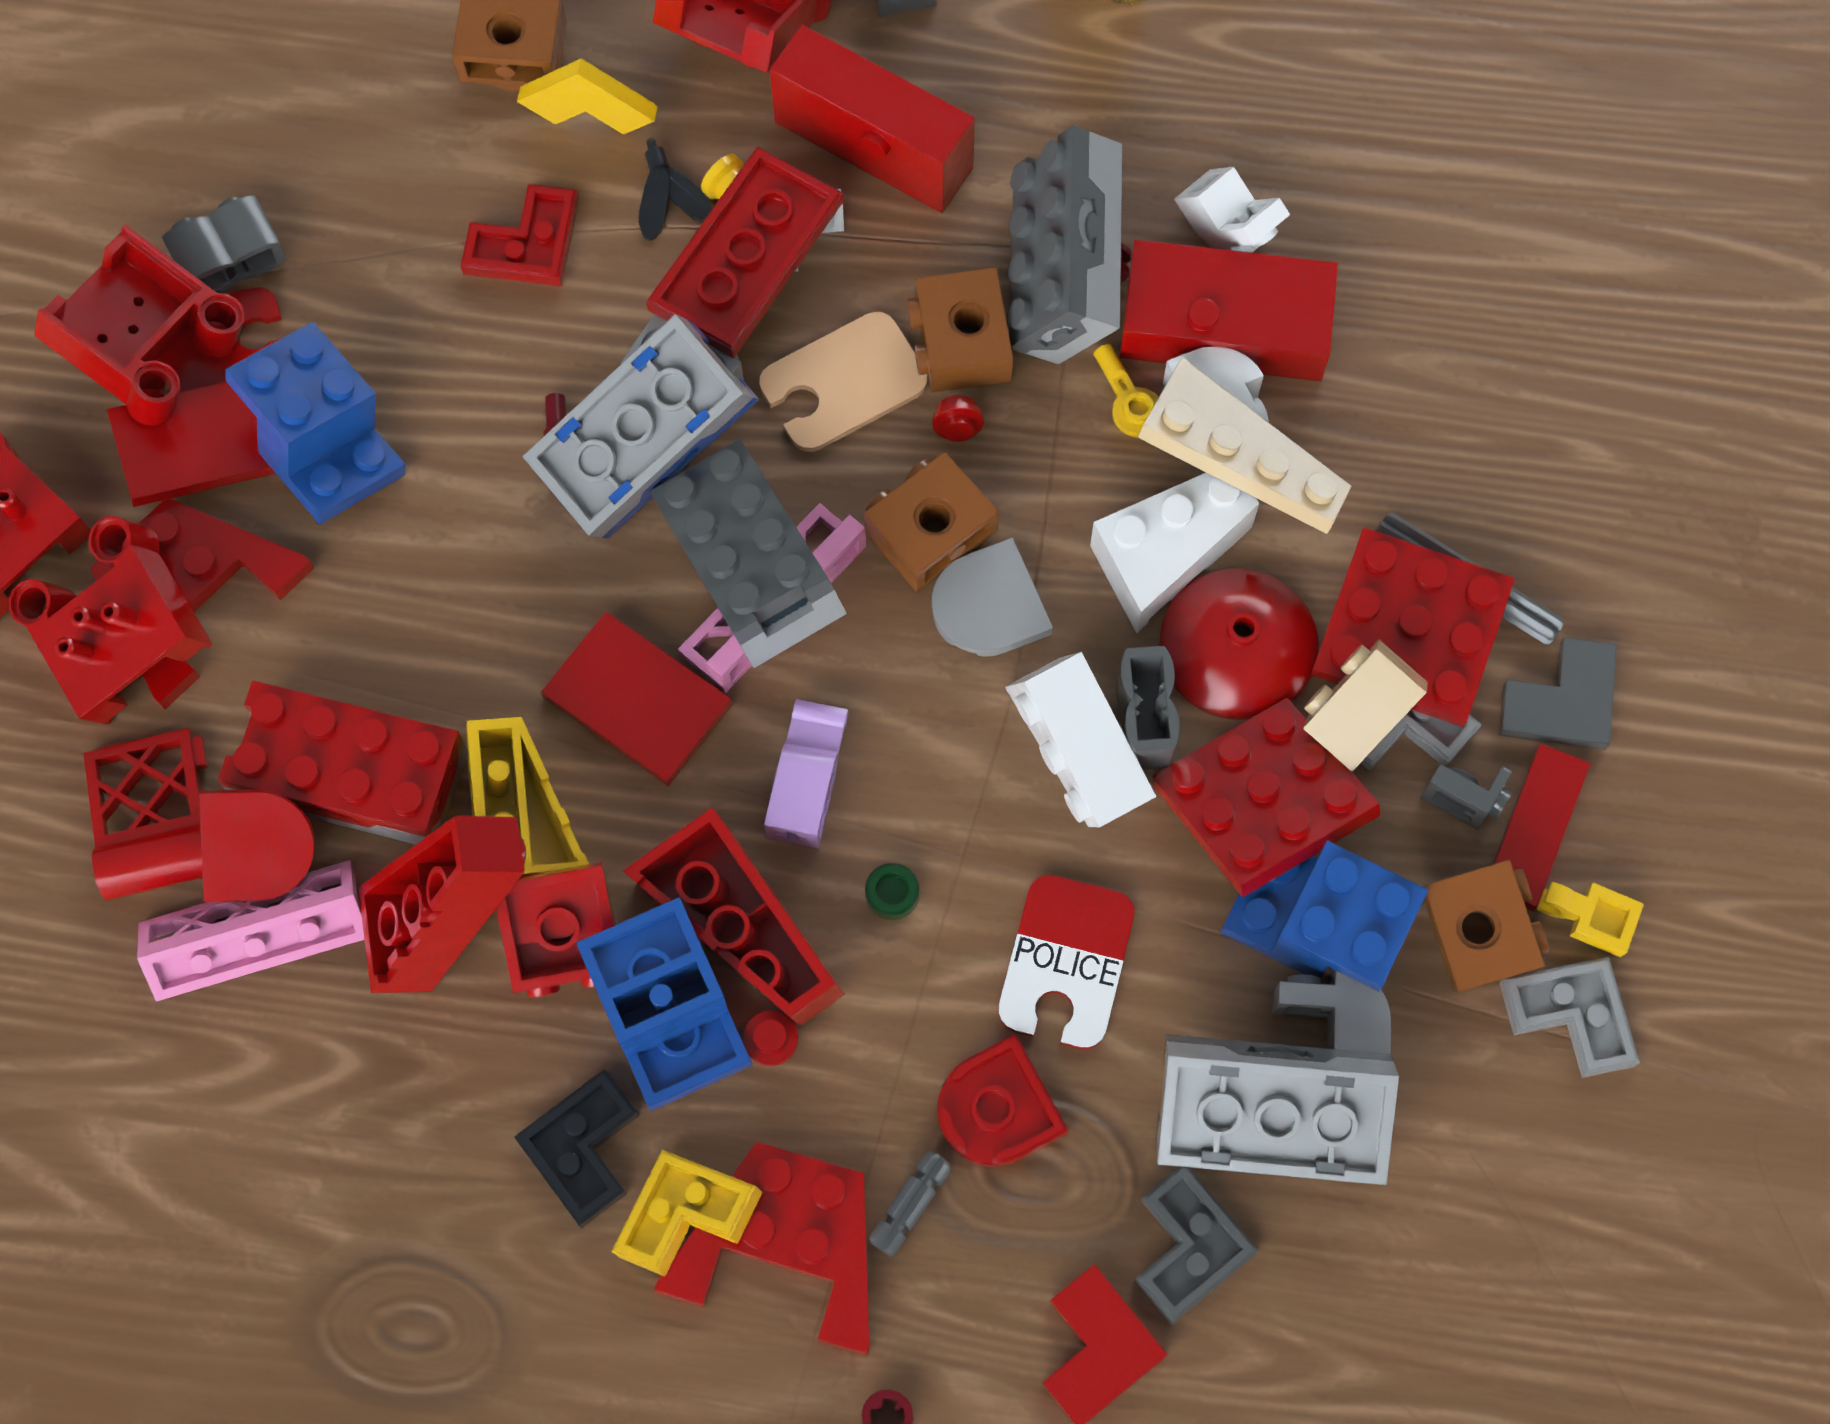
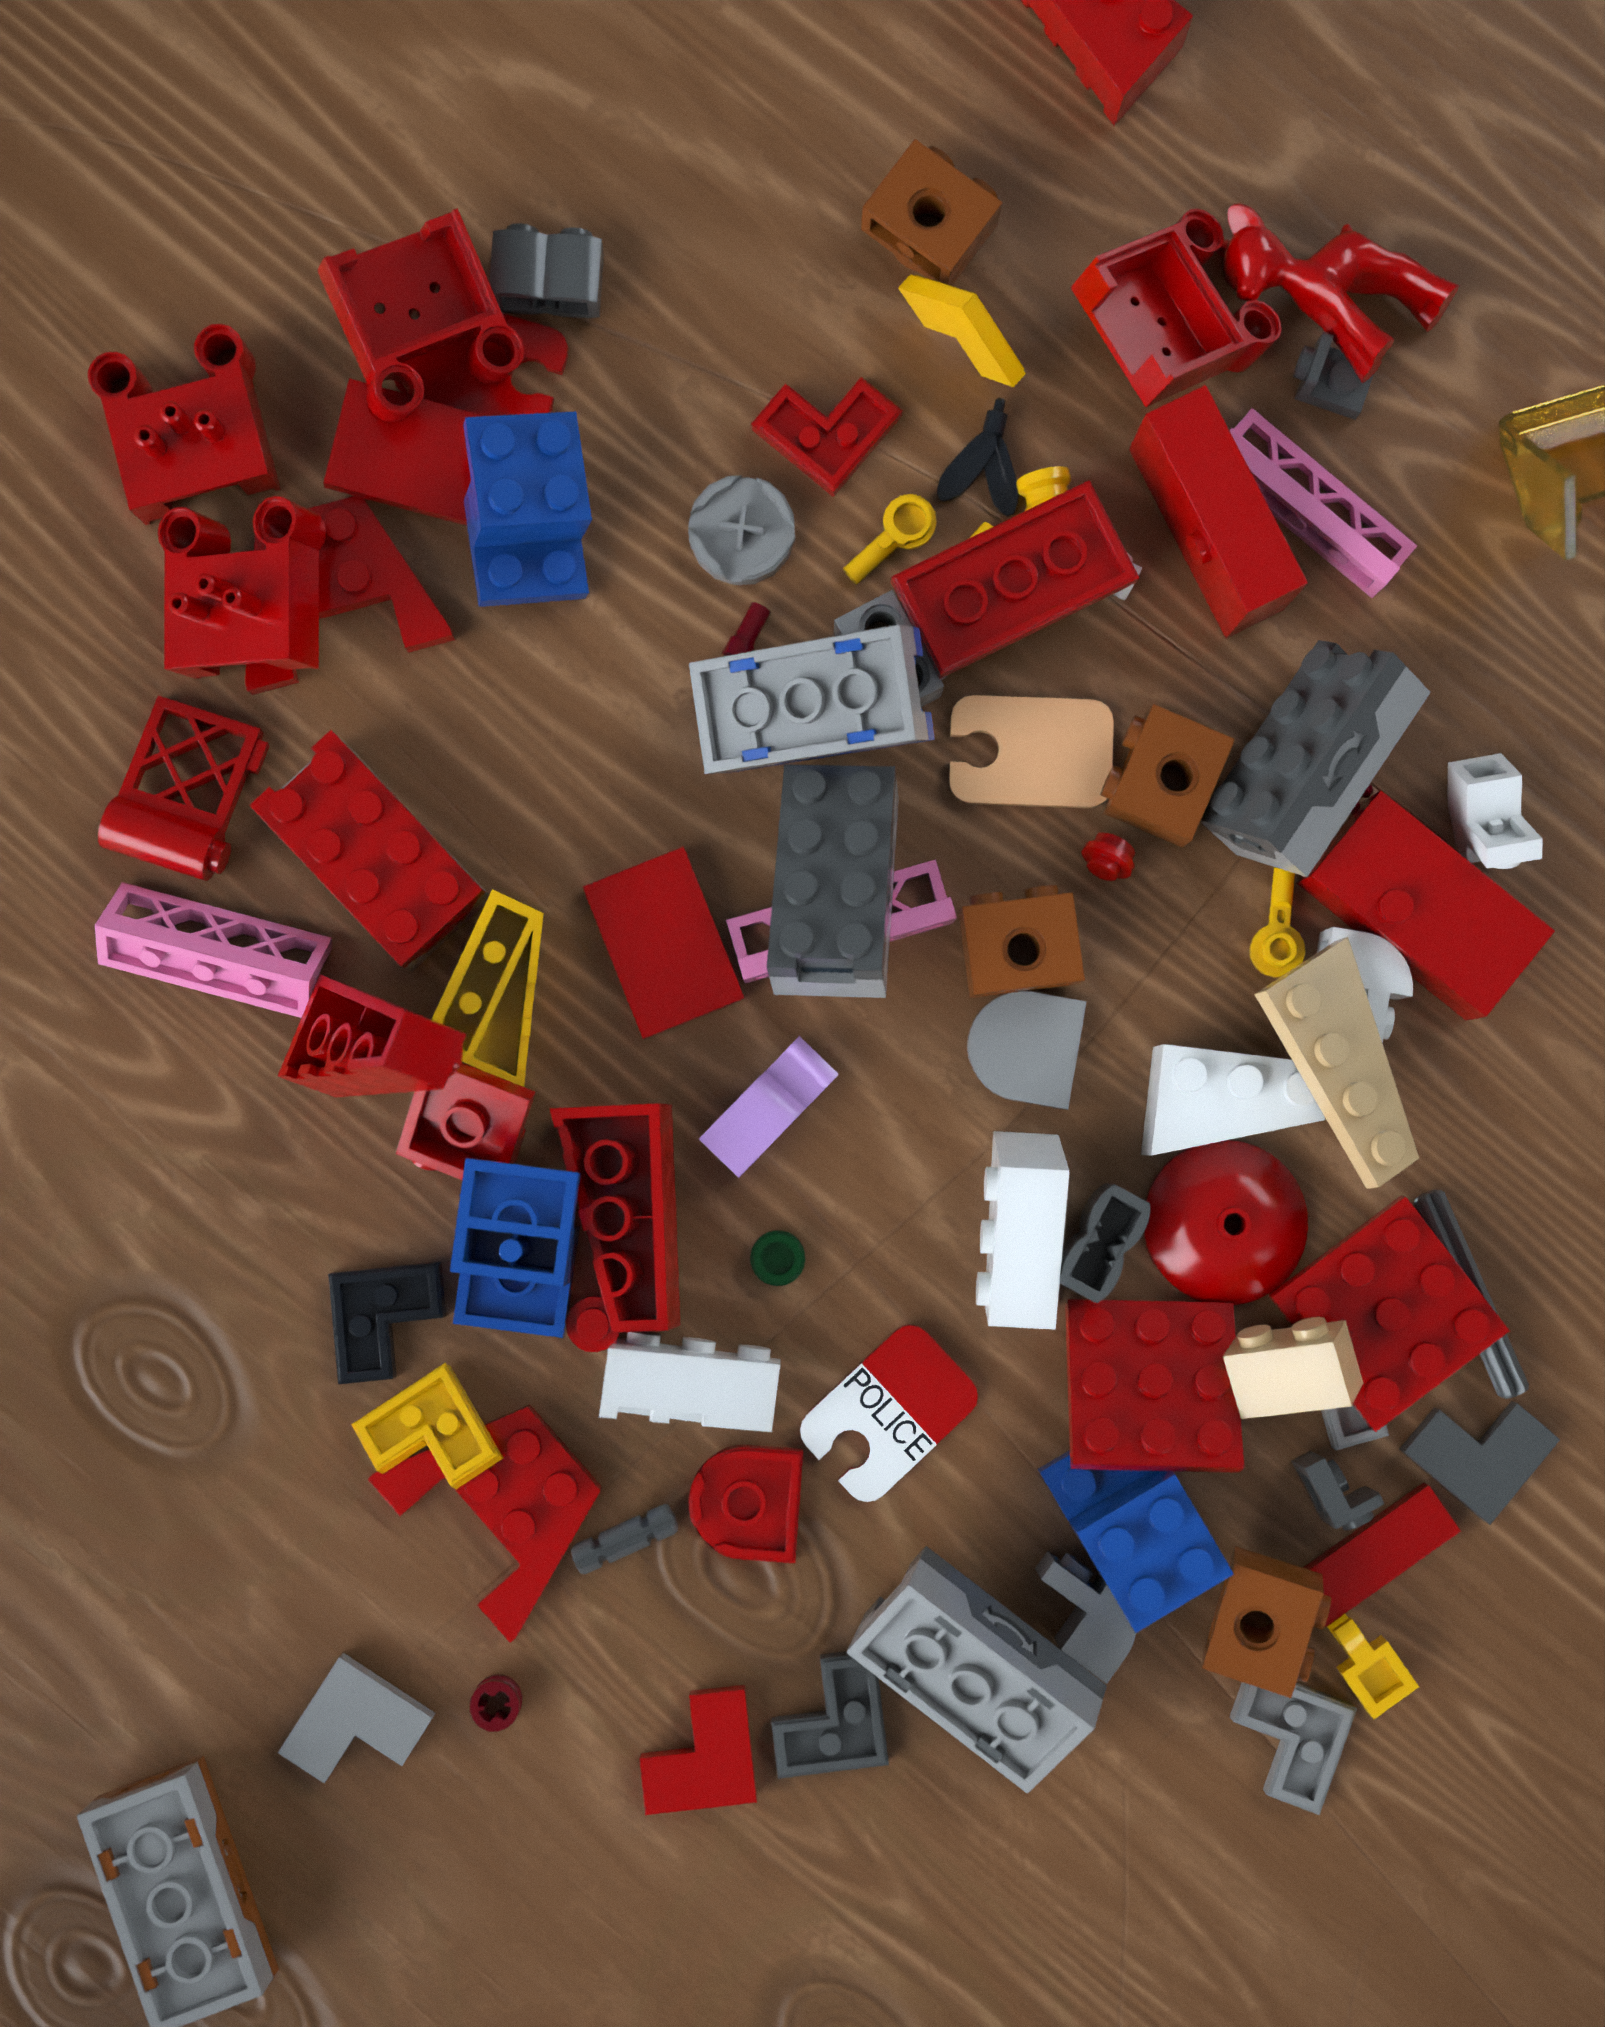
camera: 30 degrees right, 15 degrees up
(252, 844) = (247, 883): red tile -> none
(502, 350) = (741, 530): none -> light grey tile
(633, 268) = (907, 524): none -> yellow plate
(884, 1029) = (690, 1382): none -> white wedge
(963, 79) = (1309, 517): none -> bright pink fence

